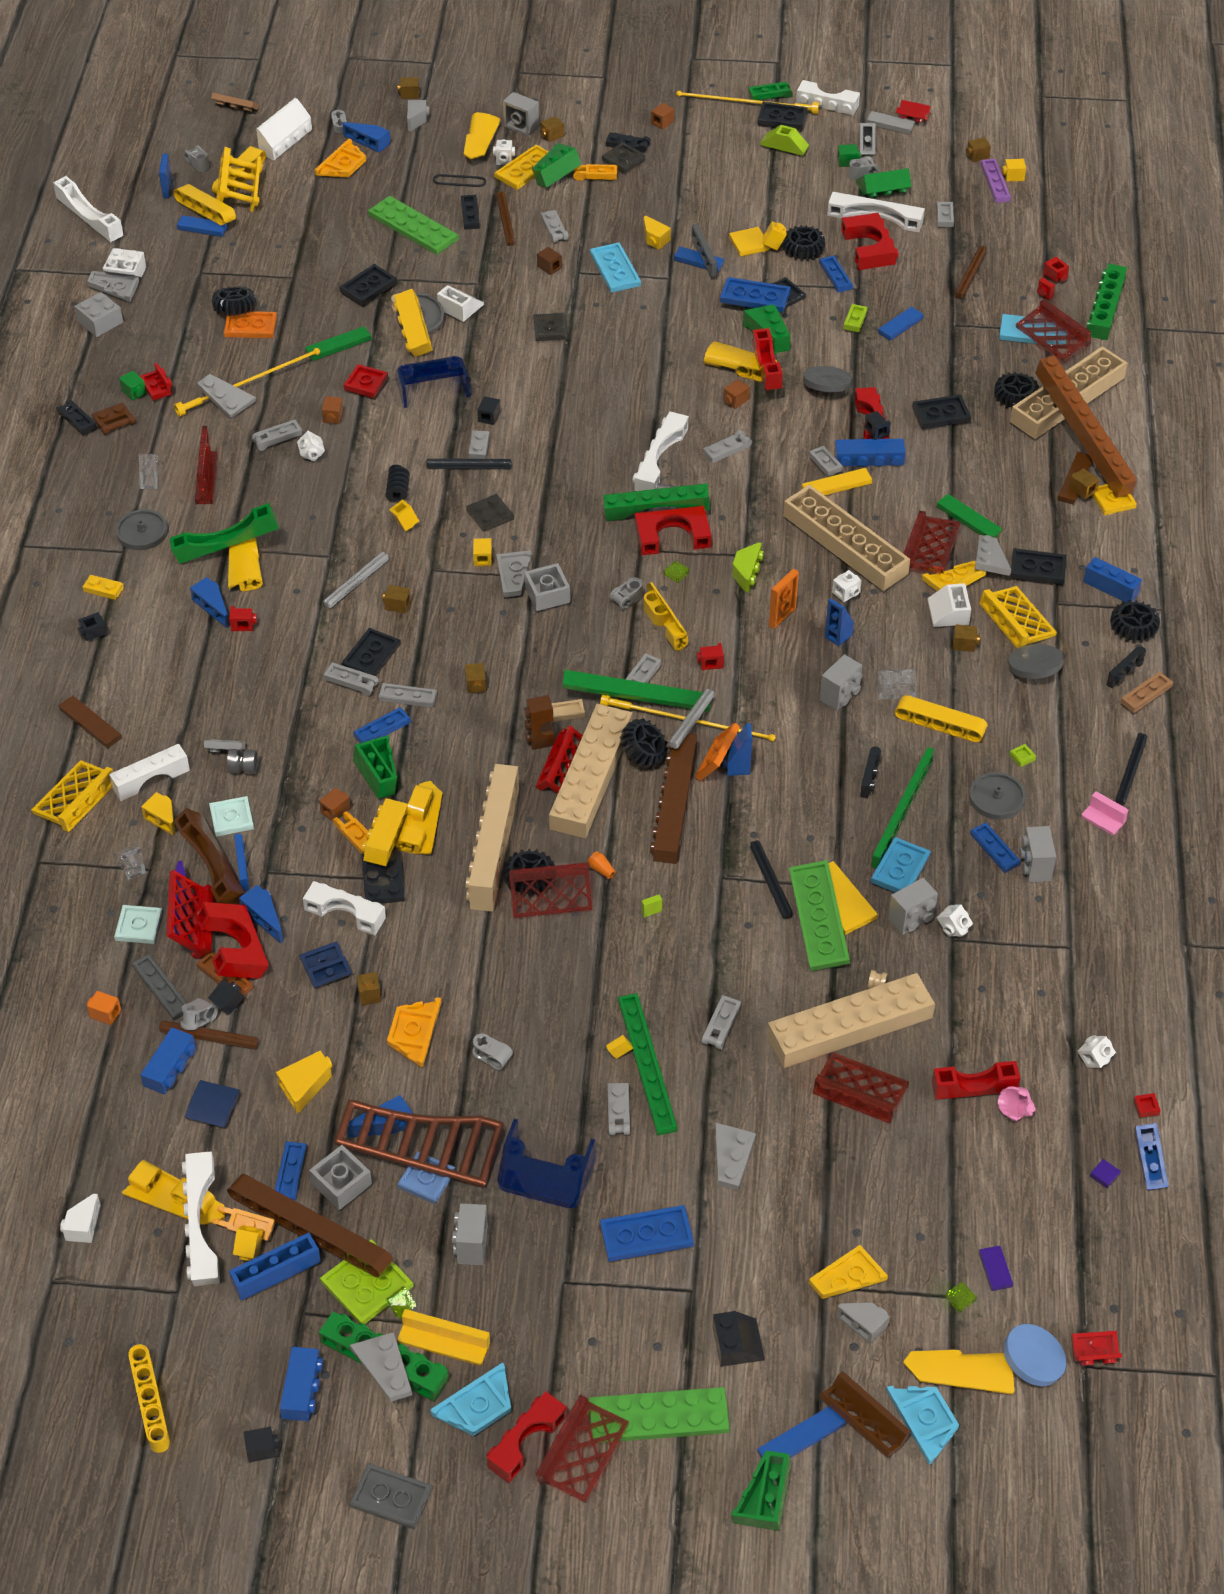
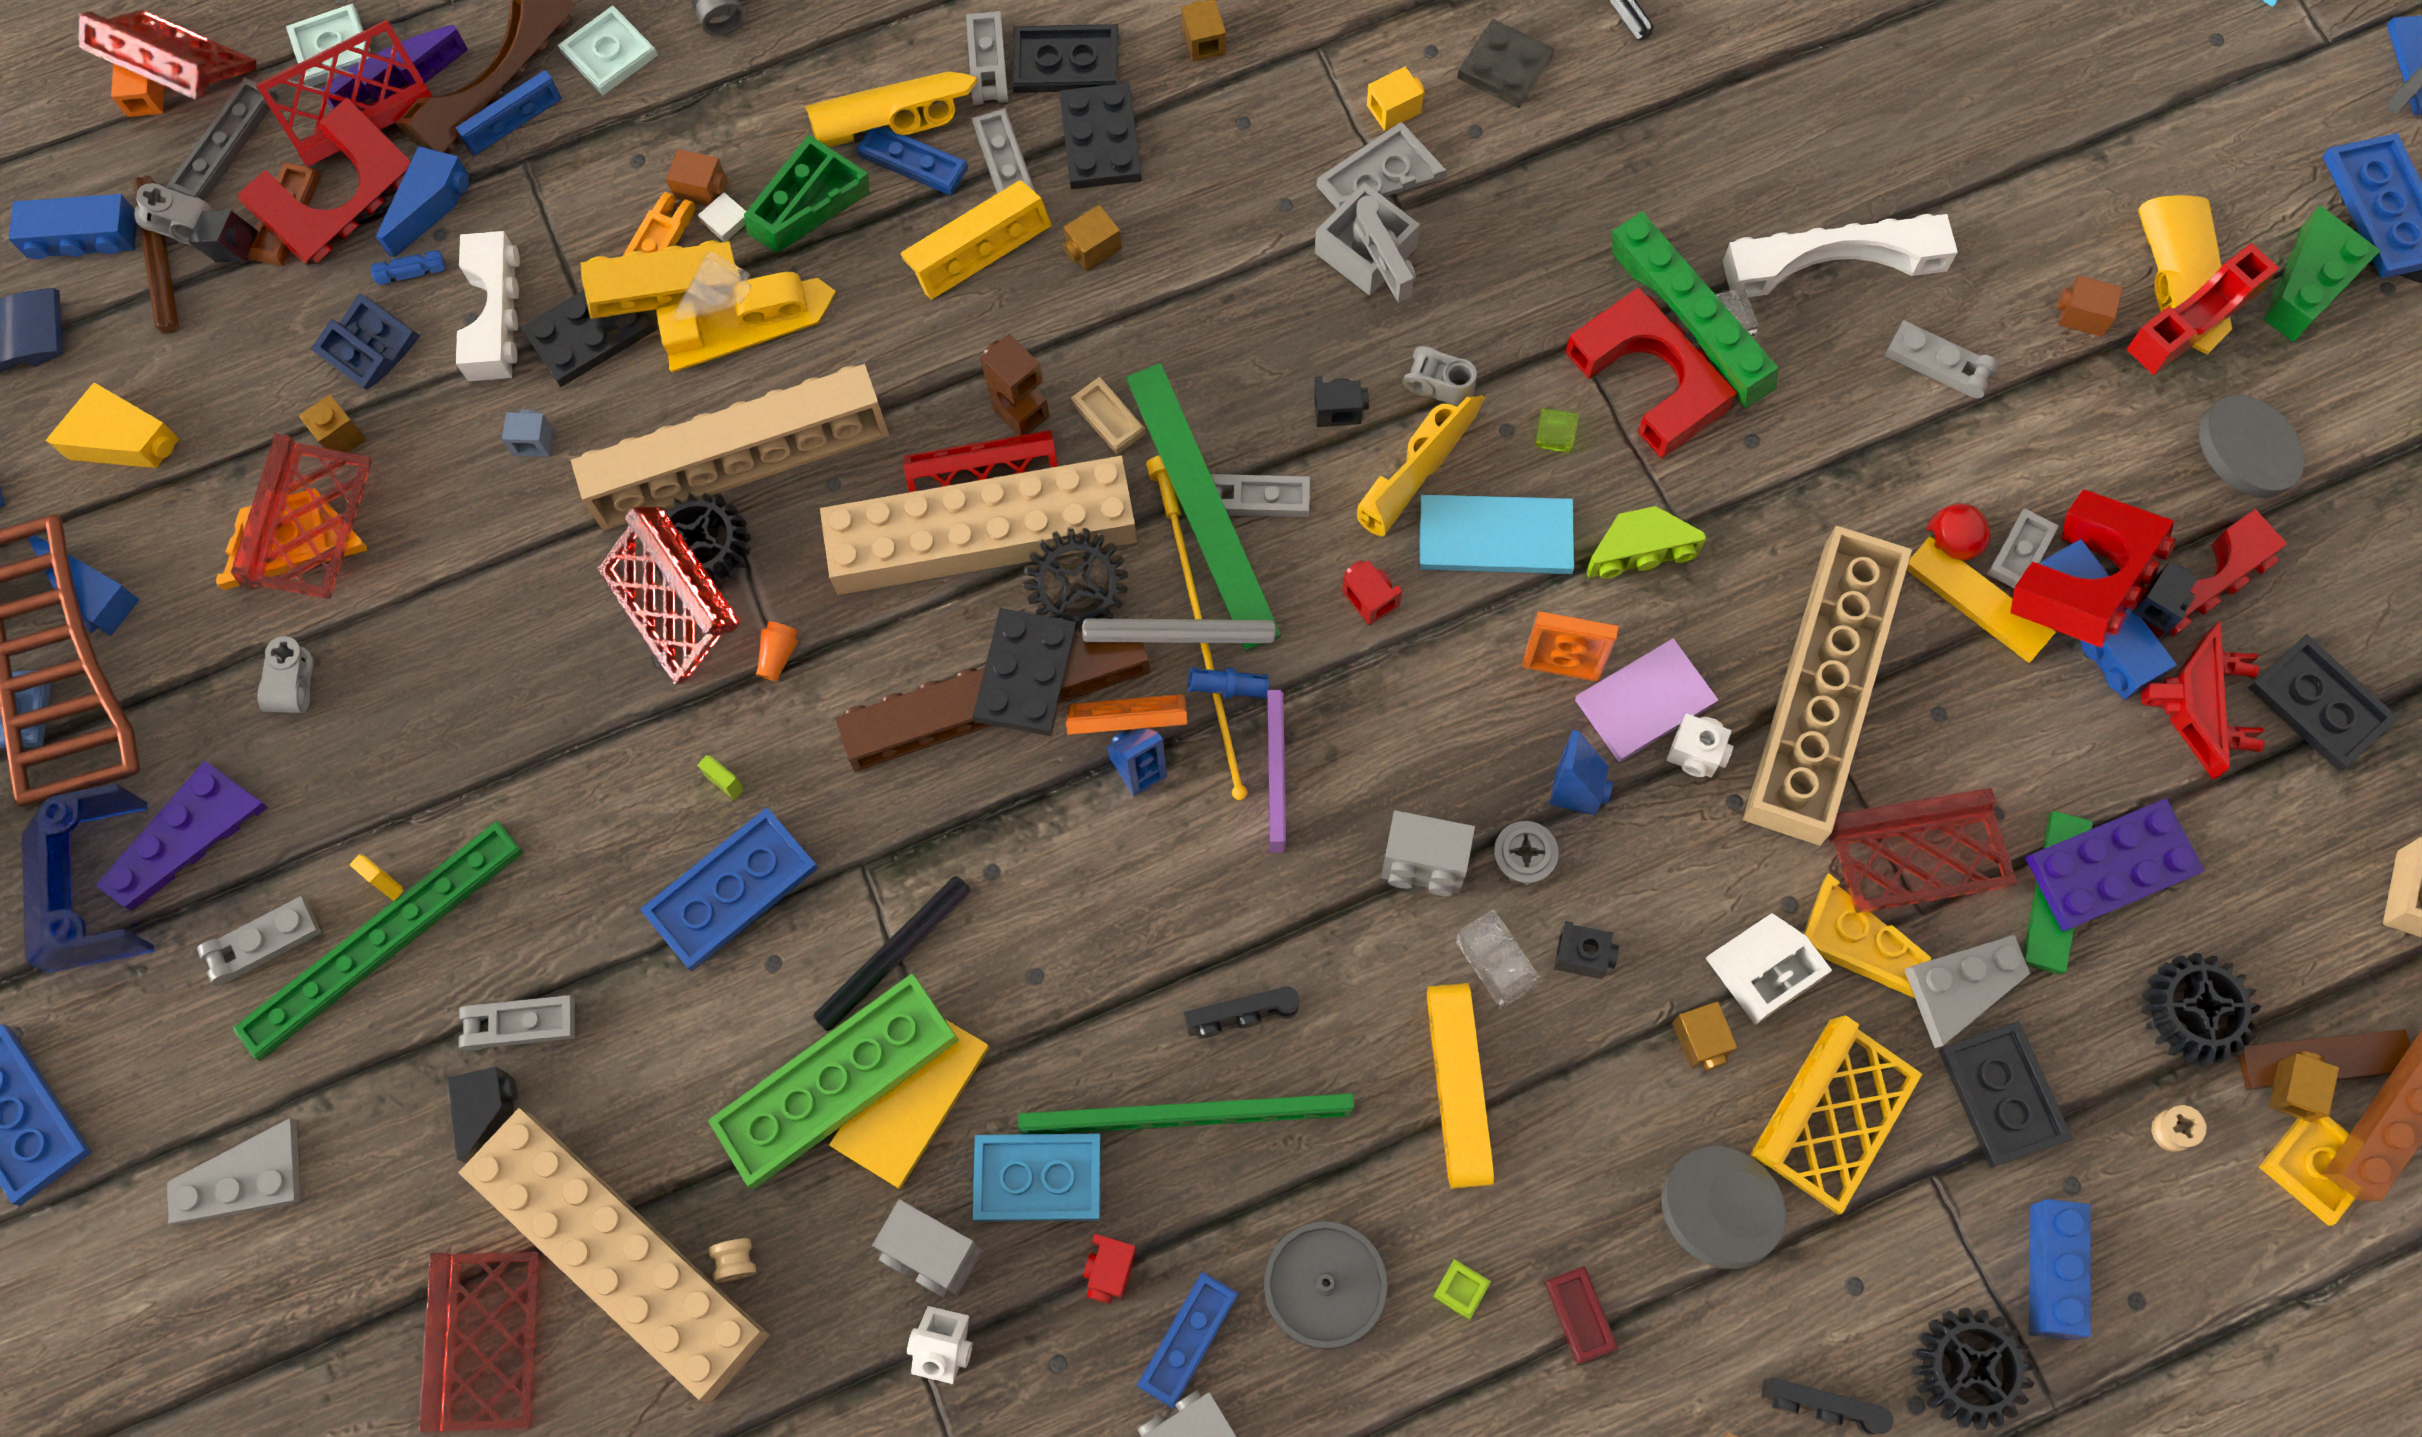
camera: 65 degrees right, 20 degrees up
(98, 984) = (161, 51): none -> clear red fence
(296, 934) = (408, 267): none -> blue axle
(354, 714) = (841, 117): none -> yellow panel
(361, 805) = (723, 217): none -> white tile
(404, 1021) = (267, 512): none -> clear red fence
(410, 808) = (713, 288): none -> clear slope
(421, 657) = (1100, 136): none -> black plate
(426, 915) = (527, 434): none -> sand blue plate
(444, 716) = (977, 238): none -> yellow panel
(542, 1122) = (190, 823): none -> dark purple wing
(565, 575) = (1384, 249): none -> light grey plate
(615, 631) = (1339, 402): none -> black brick
(677, 774) = (1025, 672): none -> black plate
(706, 923) = (729, 889): none -> blue plate
(711, 609) = (1496, 534): none -> medium azure tile
(722, 717) = (1228, 683): none -> blue pin
(756, 1048) = (479, 1107): none -> black slope
(771, 719) = (1276, 771): none -> medium lavender tile
(806, 471) = (1960, 531): none -> red hair
(813, 596) = (1646, 700): none -> lavender tile
(848, 425) = (2097, 607): none -> red arch
(864, 656) = (1539, 841): none -> light grey gear
(911, 655) = (1572, 957): none -> black brick
(920, 442) = (2198, 702): none -> red connector
(952, 856) = (1109, 1269): none -> red brick
(968, 495) = (2114, 864): none -> dark purple plate
(1038, 499) = (2201, 979): none -> black gear
(1052, 724) = (1580, 1315): none -> dark red tile
(1078, 526) = (2170, 1134): none -> tan wheel

